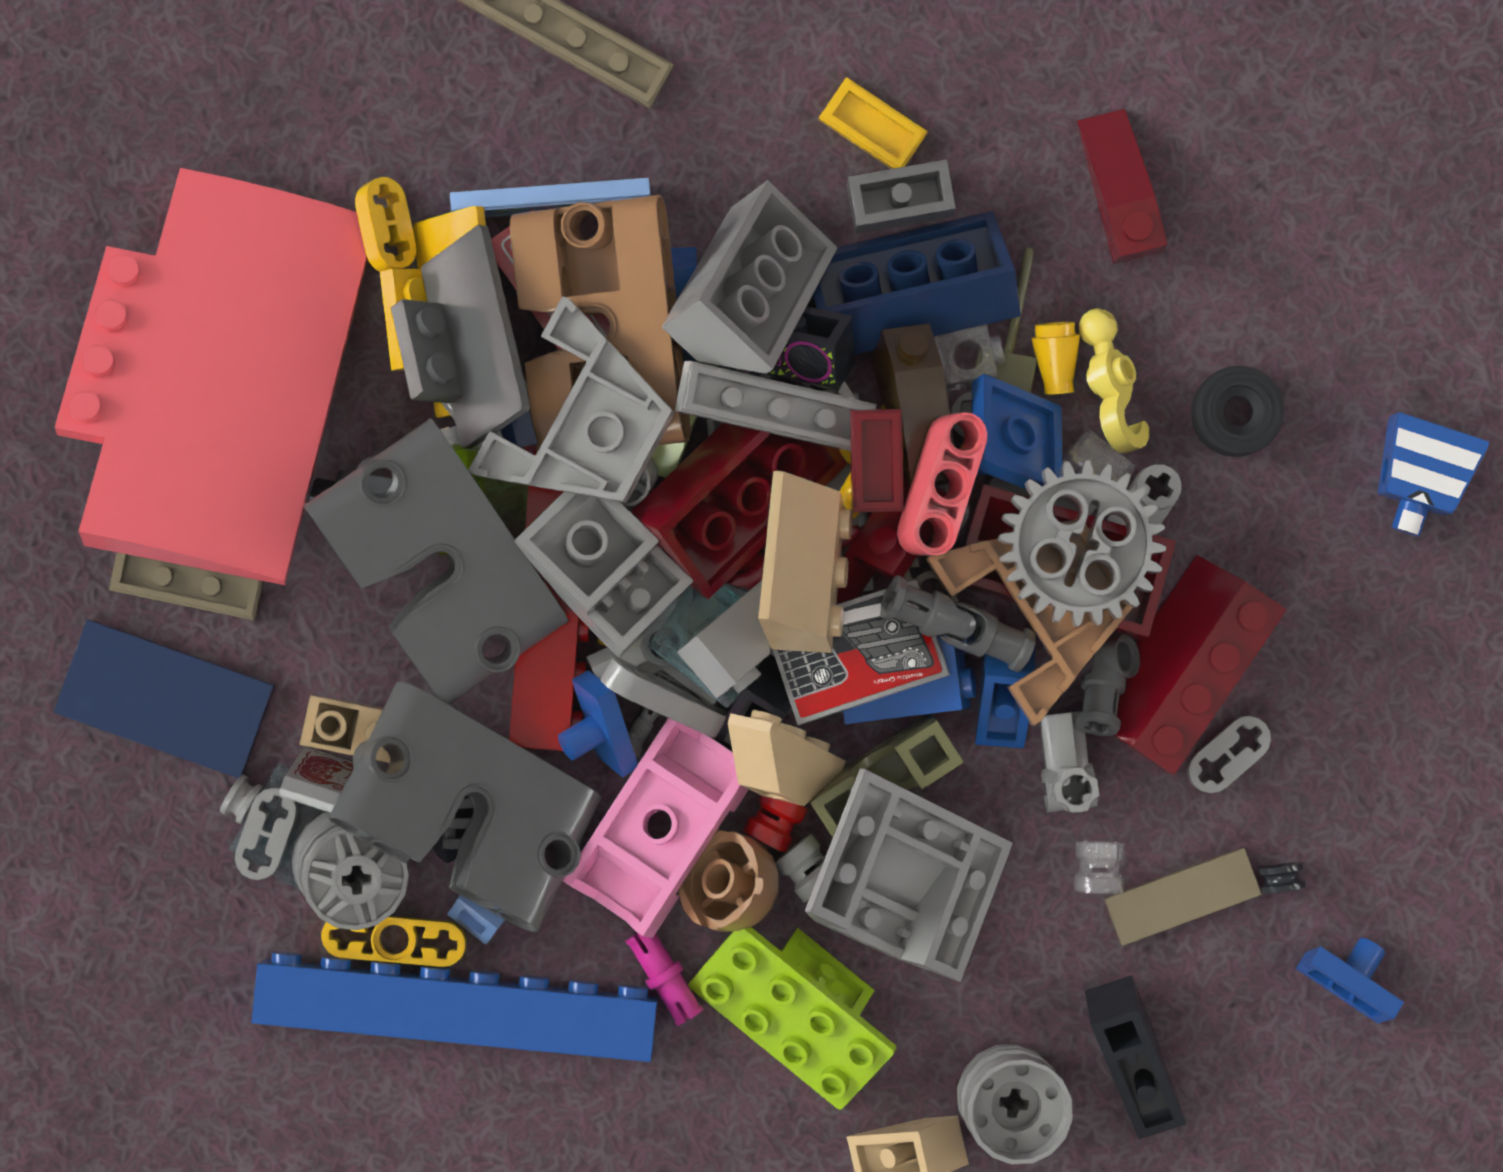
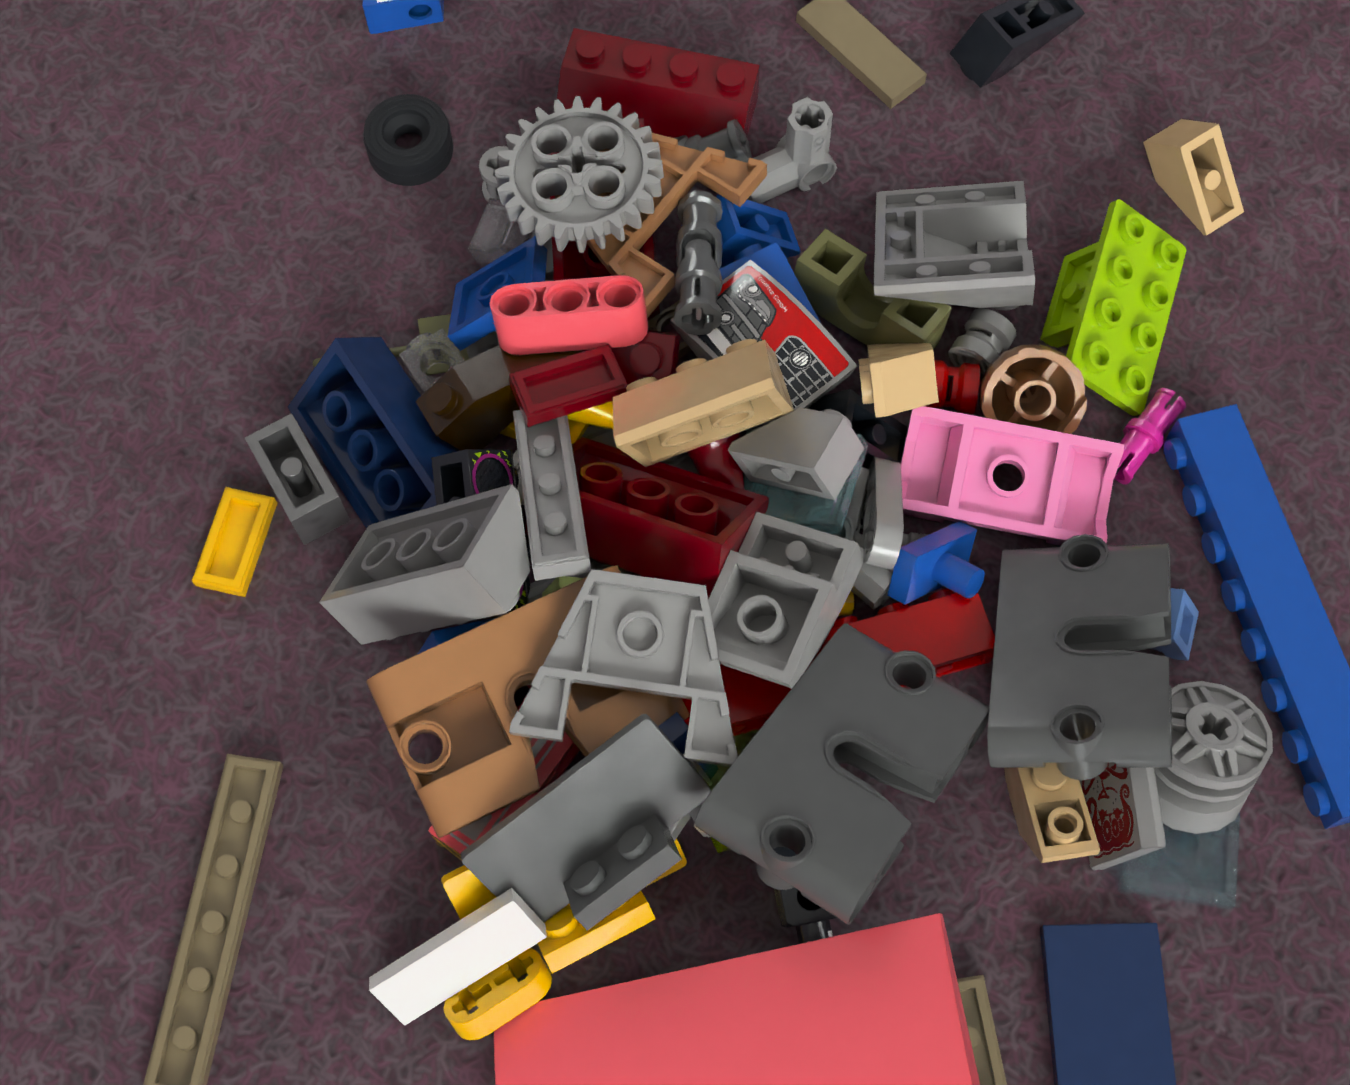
camera: 110 degrees left, 20 degrees down
(240, 798) = (1178, 910): light grey bush -> none
(256, 828) = (1202, 879): light grey beam -> none
(420, 201) = (457, 957): none -> white tile
(430, 954) = (1249, 681): yellow beam -> none
(536, 198) = (407, 819): light blue tile -> none
(1030, 1127) = (1110, 95): light grey wheel -> none
(1056, 355) = (408, 300): yellow cone -> none
(1099, 855) = (866, 111): clear wheel -> none
(1111, 378) = (412, 247): light yellow piece -> none
(1122, 187) = (229, 296): dark red slope -> none
(1236, 763) = (720, 42): light grey beam -> none

